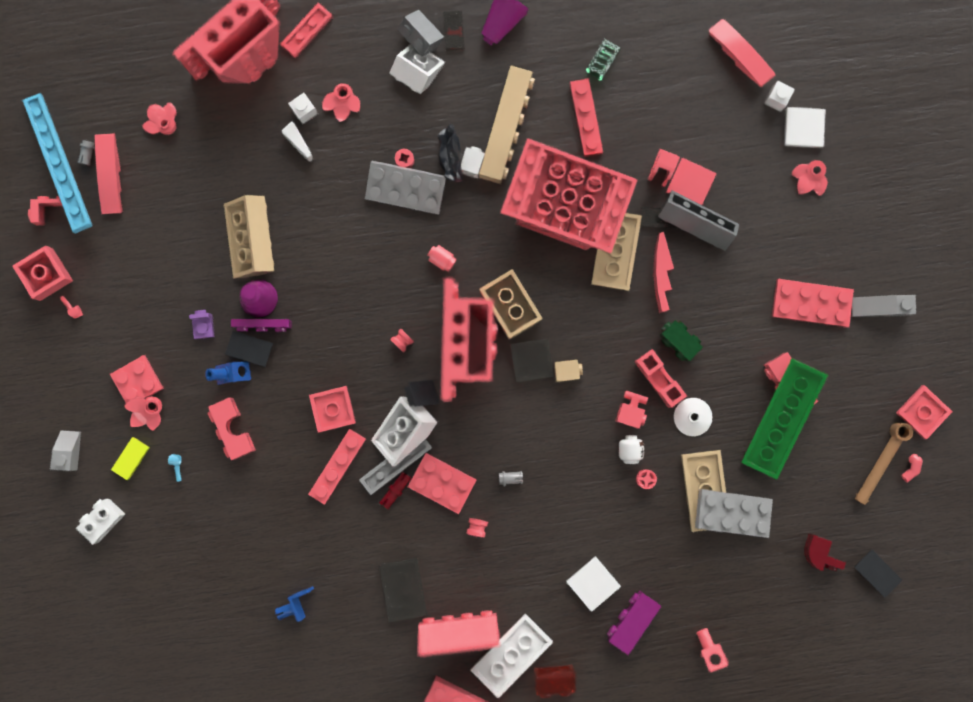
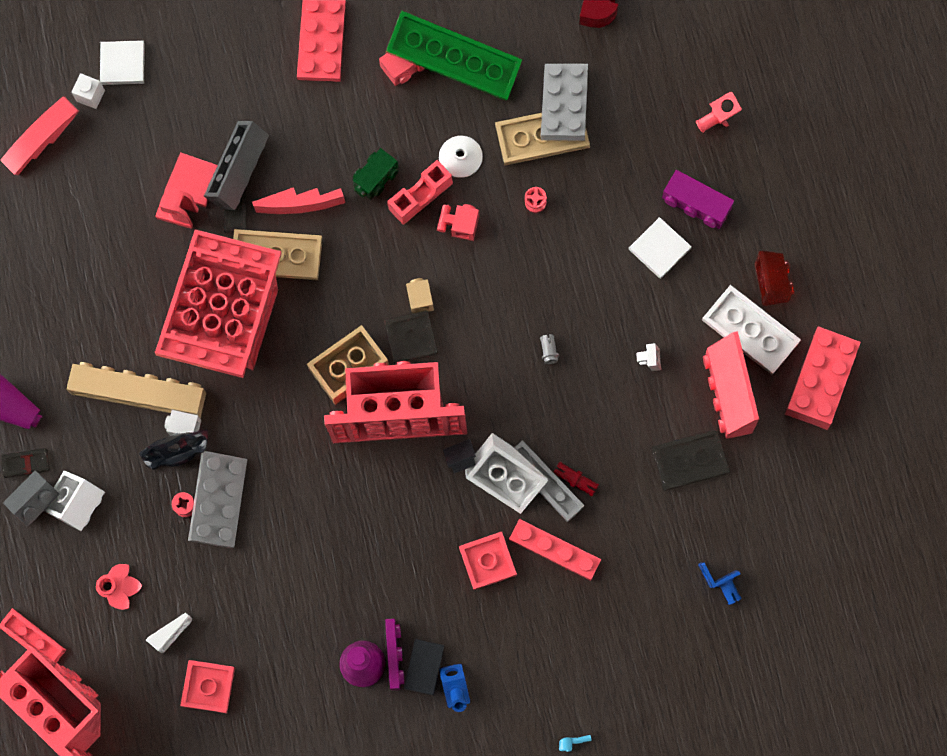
camera: 85 degrees left, 10 degrees down
(202, 324) = (399, 727): medium lavender bracket -> none
(222, 414) = (506, 690): coral arch -> none
(249, 236) = (288, 681): tan slope -> none
(251, 170) = (207, 686): none -> coral plate
(303, 108) = (128, 630): white brick -> none
(402, 340) = (399, 486): coral wheel -> none
(441, 258) = (299, 450): coral brick -> none
(442, 483) = (562, 426): coral plate -> none
(477, 527) = (609, 381): coral wheel -> none
(494, 566) = (650, 357): none -> white tile
(586, 117) = (122, 302): coral plate -> none
(596, 72) = (68, 295): clear green slope -> none
(631, 449) = (503, 218): white head -> none
(809, 180) = (181, 53): coral plate -> none

